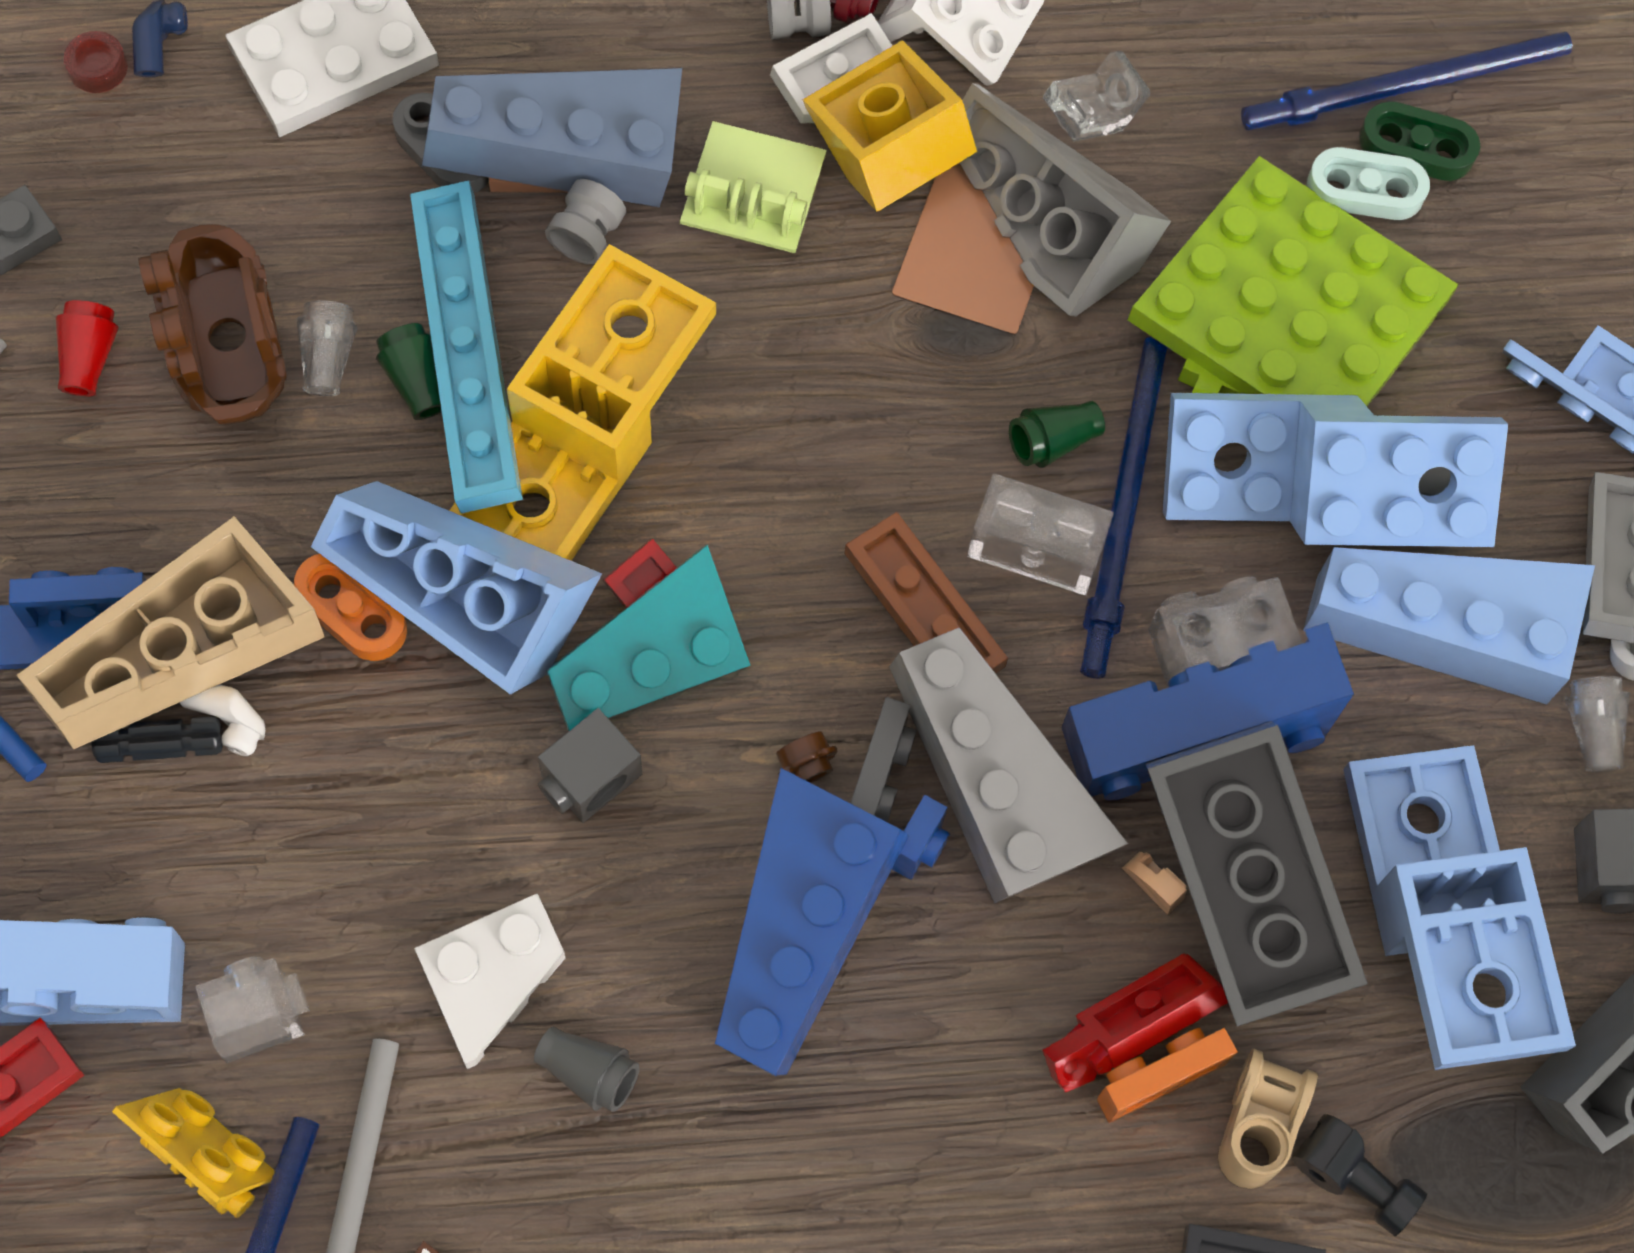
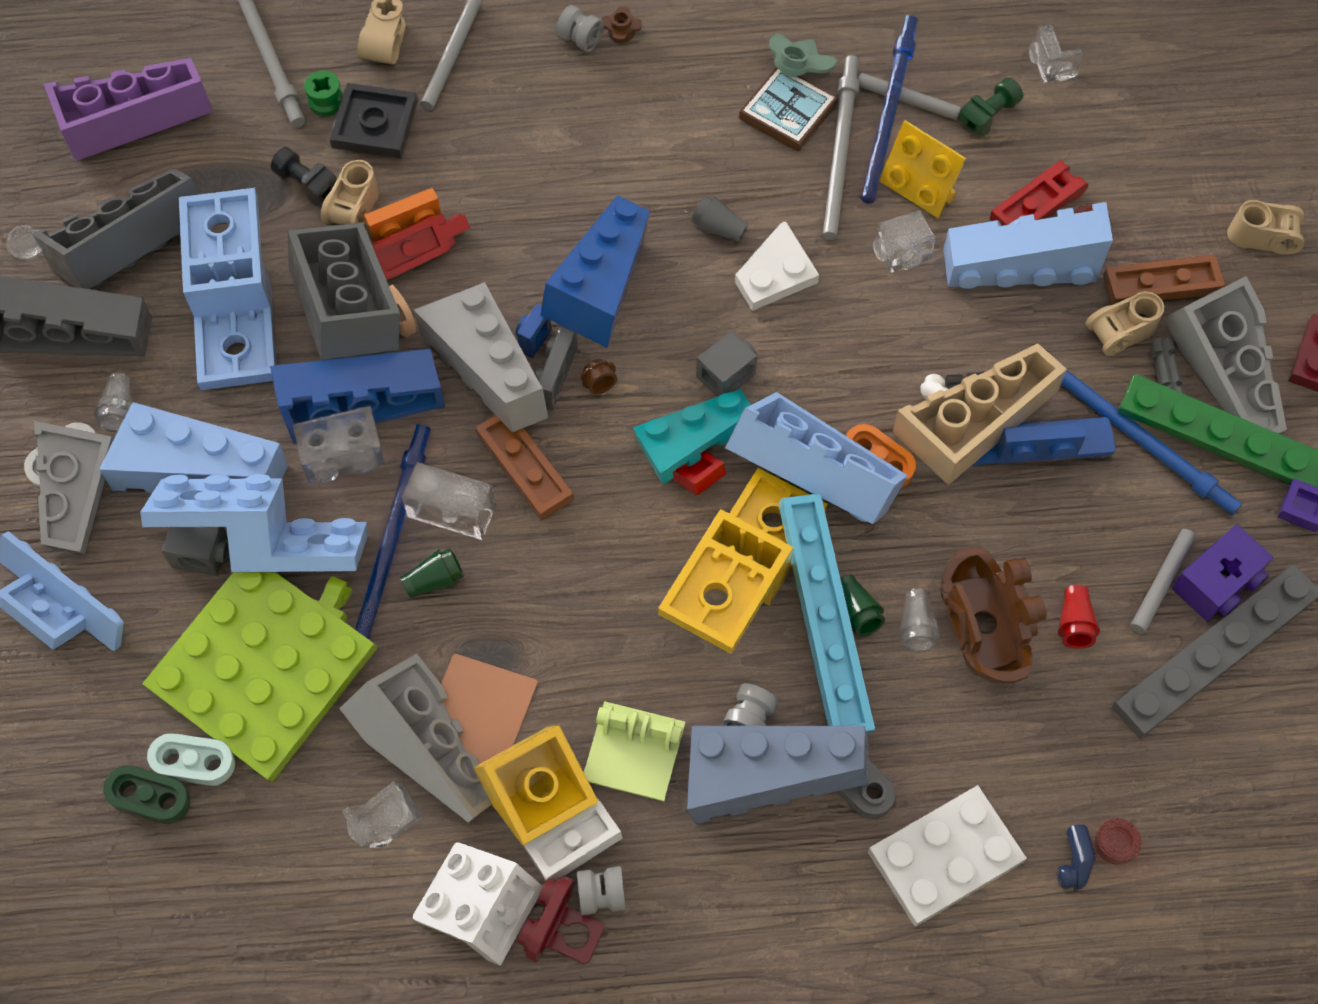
camera: 175 degrees left, 5 degrees down
(1304, 104) = (227, 826): clear blue bar -> none

